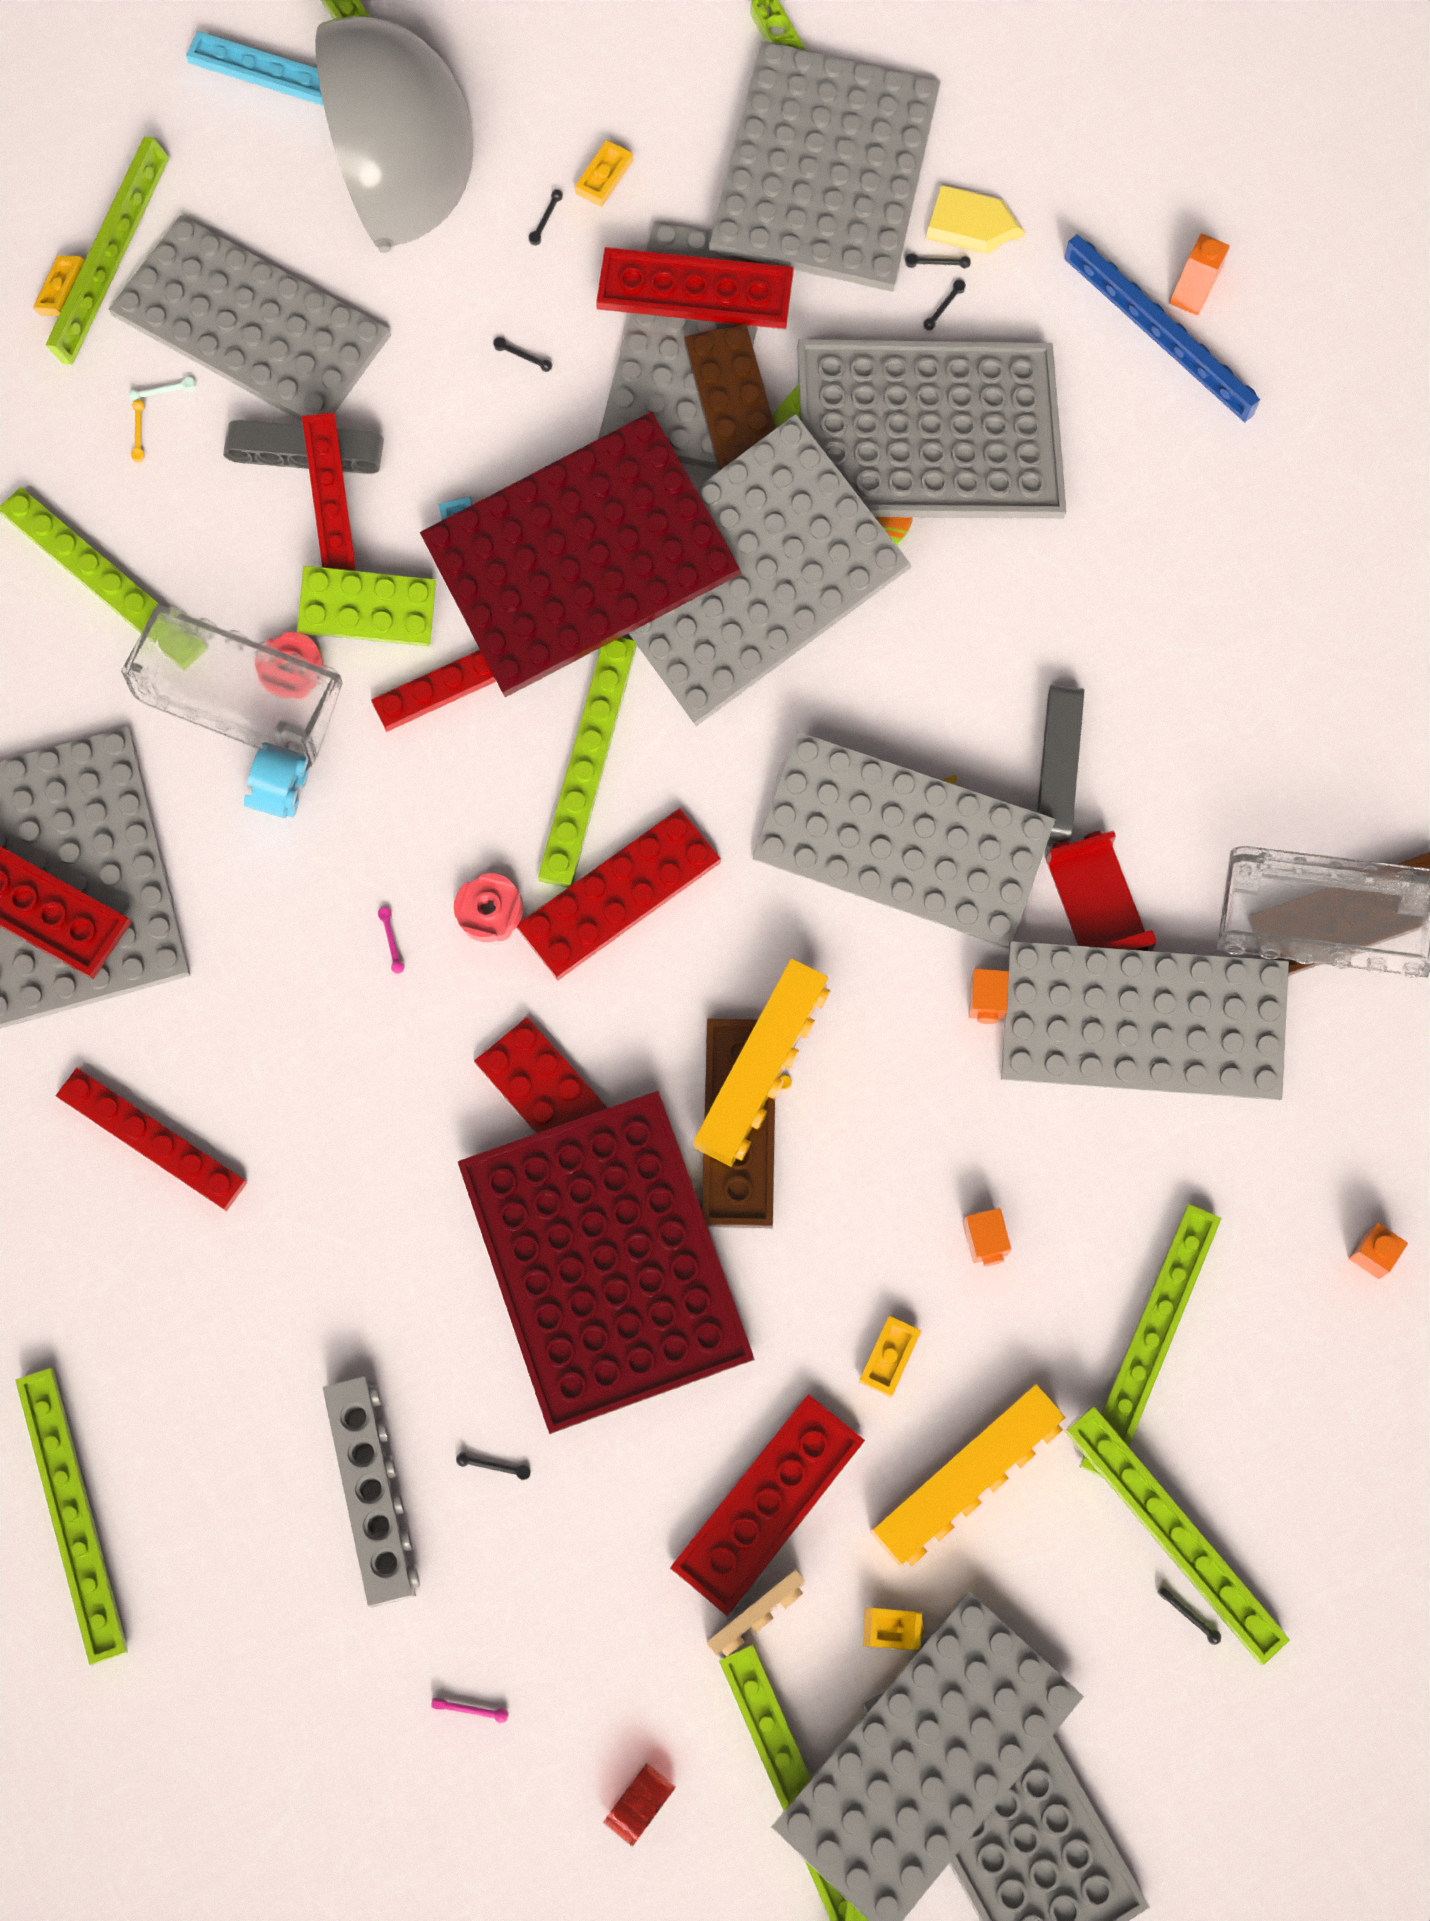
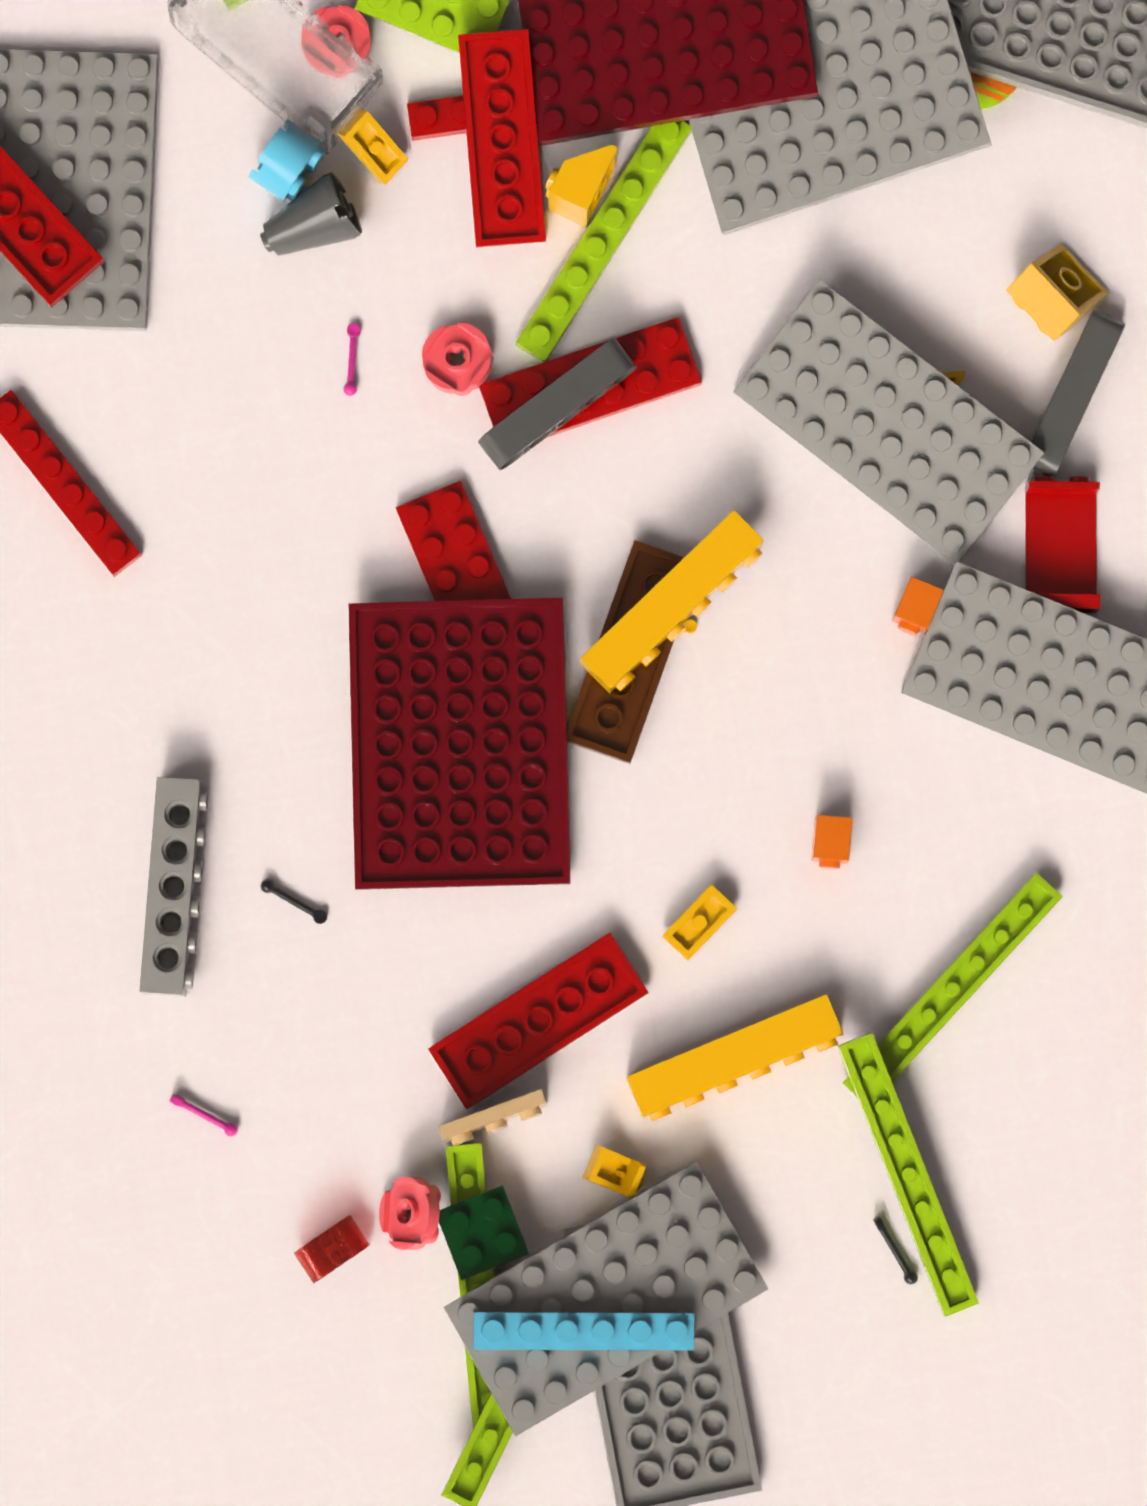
camera: 15 degrees right, 10 degrees up
(315, 825) = (313, 219): none -> dark grey cone
(351, 744) = (373, 146): none -> yellow plate
(467, 701) = (502, 138): none -> red plate
(552, 717) = (581, 183): none -> yellow slope
(594, 917) = (557, 404): none -> dark grey beam
(722, 1751) = (422, 1226): none -> coral plate
(783, 1736) = (482, 1232): none -> dark green plate
(918, 1804) = (583, 1331): none -> medium azure plate
(1011, 681) = (1056, 291): none -> yellow slope

